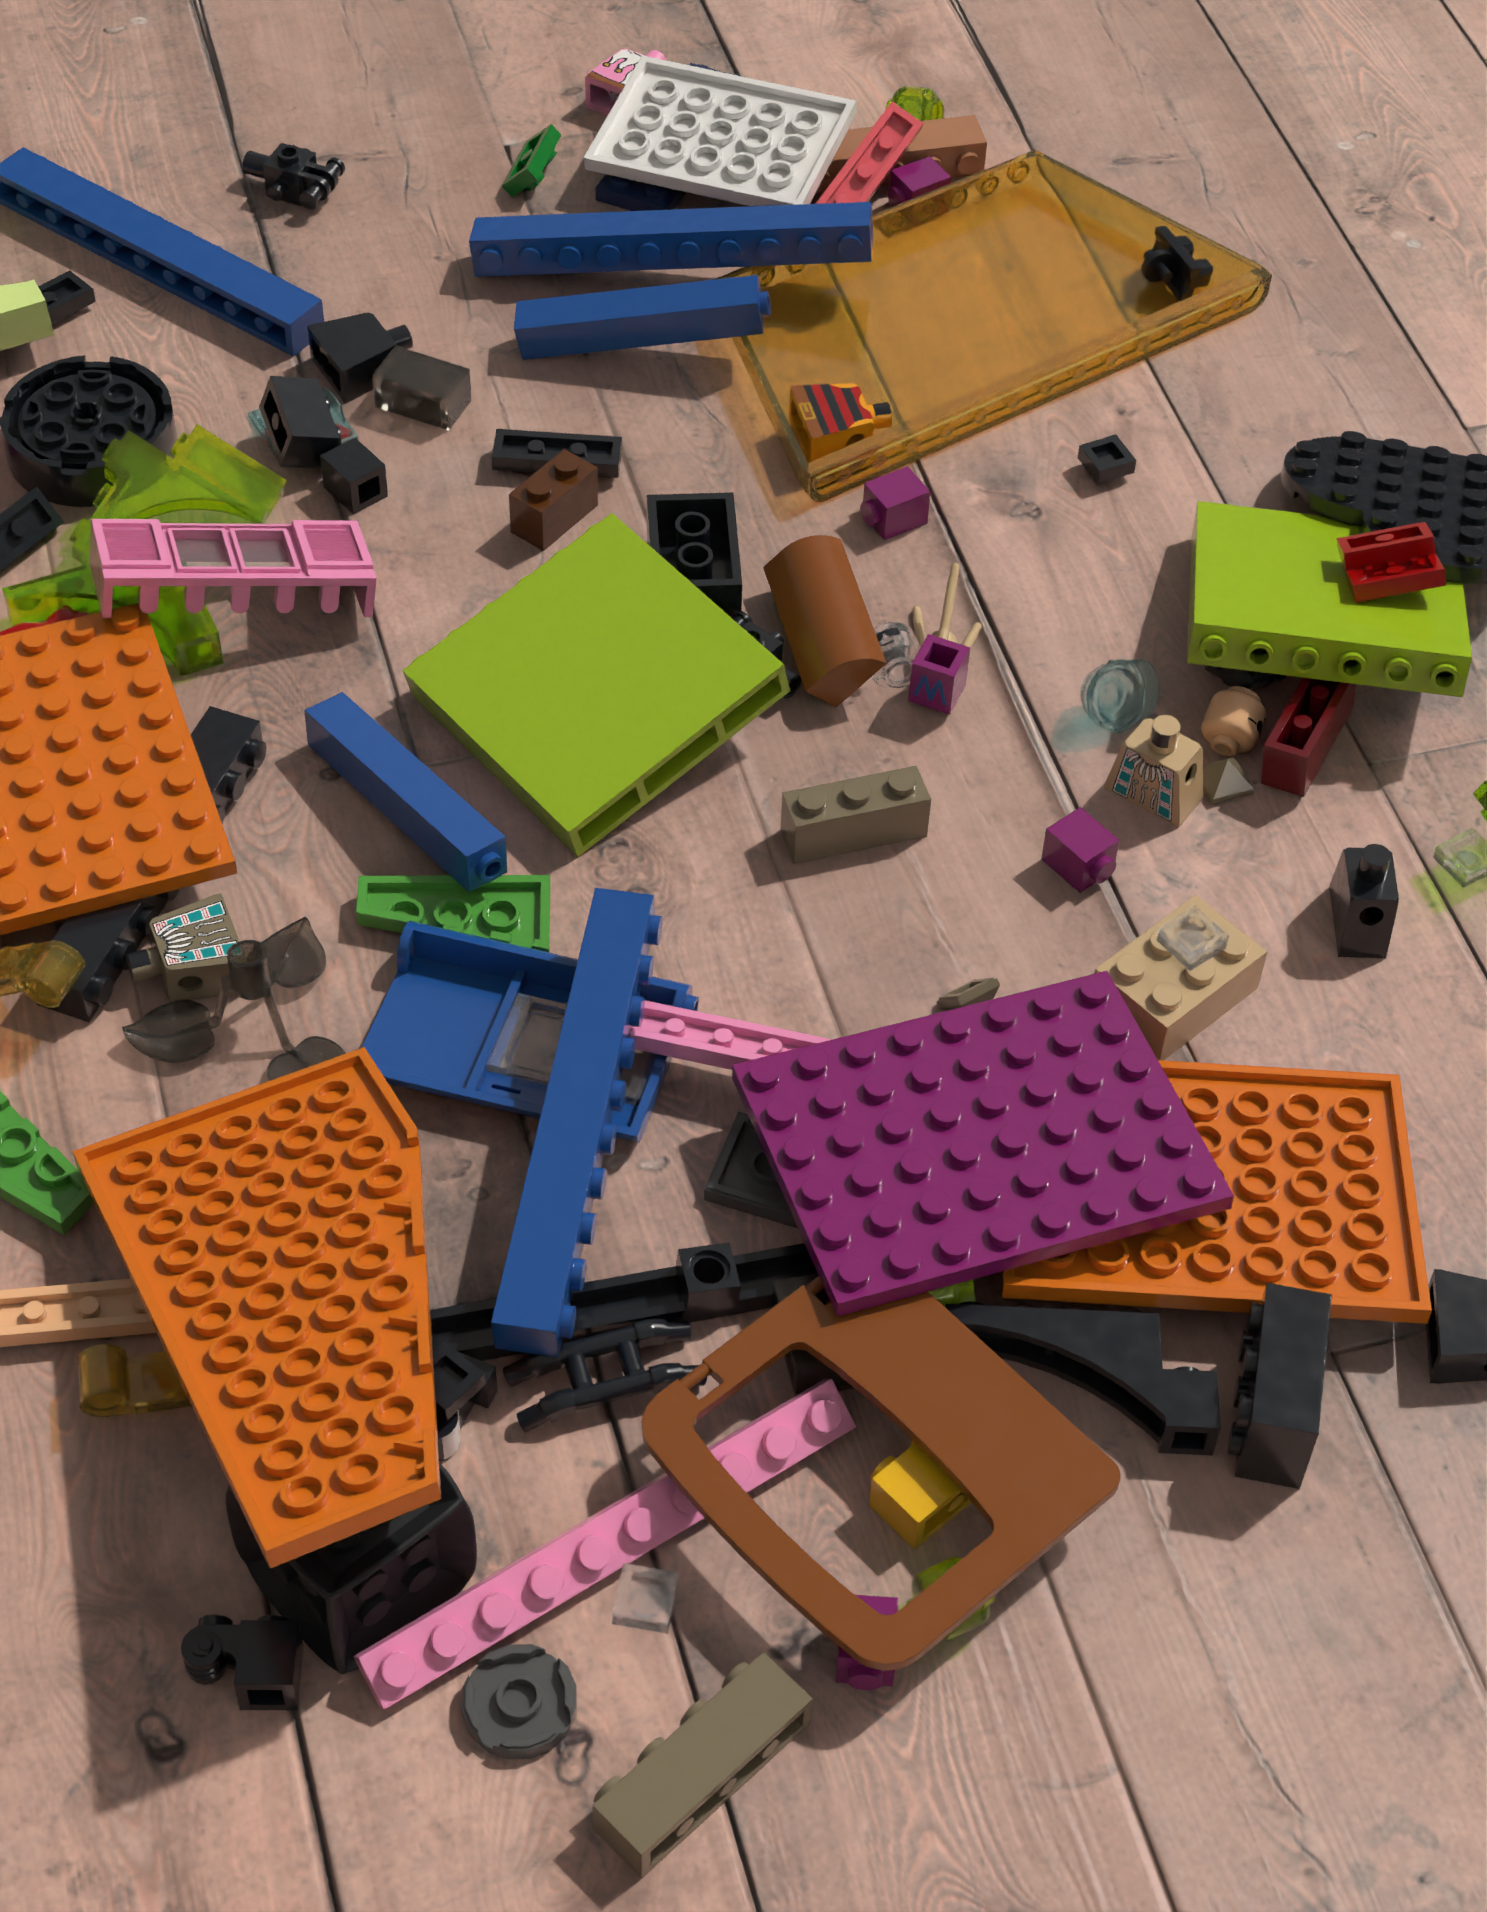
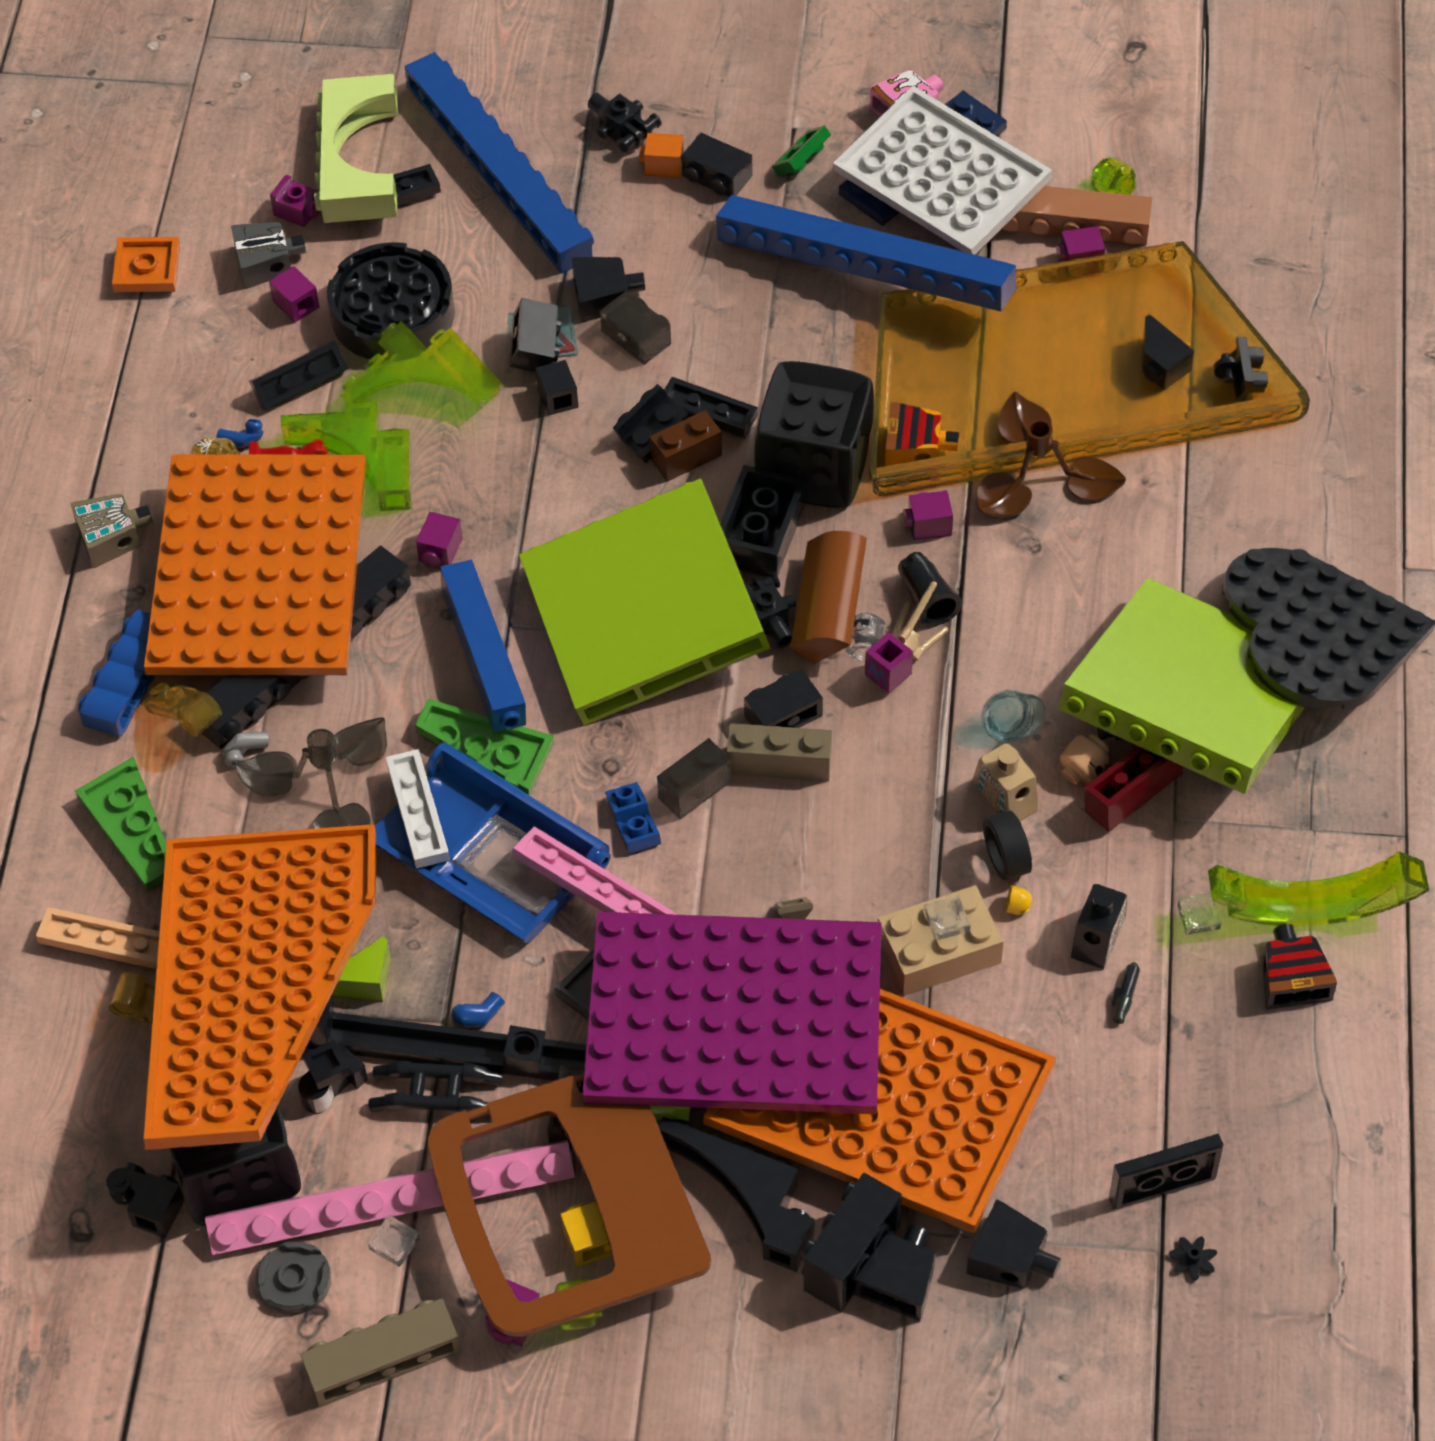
camera: 25 degrees right, 5 degrees up
(118, 1004) = (241, 743): none -> light grey arm
(188, 950) = (296, 716): dark tan torso -> none
(233, 556) = (435, 437): bright pink window -> none
(282, 684) = (439, 539): none -> magenta brick
(363, 200) = (662, 155): none -> orange brick
(411, 1014) = (417, 808): none -> white plate
(436, 196) = (717, 165): none -> black brick
(445, 1242) = (366, 973): none -> lime slope
(485, 490) = (649, 416): none -> black bracket
(576, 1126) = (481, 917): blue brick -> none
(617, 1254) = (477, 1014): none -> blue arm
(641, 317) = (812, 313): blue brick -> none
(696, 945) = (633, 817): none -> blue slope
(723, 426) = (817, 429): none -> black piece
(762, 875) = (694, 778): none -> clear smoke brick
(830, 753) = (785, 703): none -> black brick
(874, 157) = (1043, 225): coral plate -> none
(926, 578) = (916, 576): none -> black plant
(971, 463) = (1026, 421): none -> reddish brown plant
(1074, 268) = (1164, 354): none -> black slope
(1080, 850) = (923, 825): magenta brick -> none
(1106, 459) = (1106, 521): black plate -> none
(1217, 829) = (1007, 845): none -> black tyre
(1225, 780) = (1059, 801): dark tan slope -> none
(1241, 905) = (1018, 901): none -> yellow hinge
(1363, 1410) = (899, 1273): none -> black torso
(1391, 562) = (1241, 674): red slope -> none
(1431, 977) = (1123, 995): none -> piece

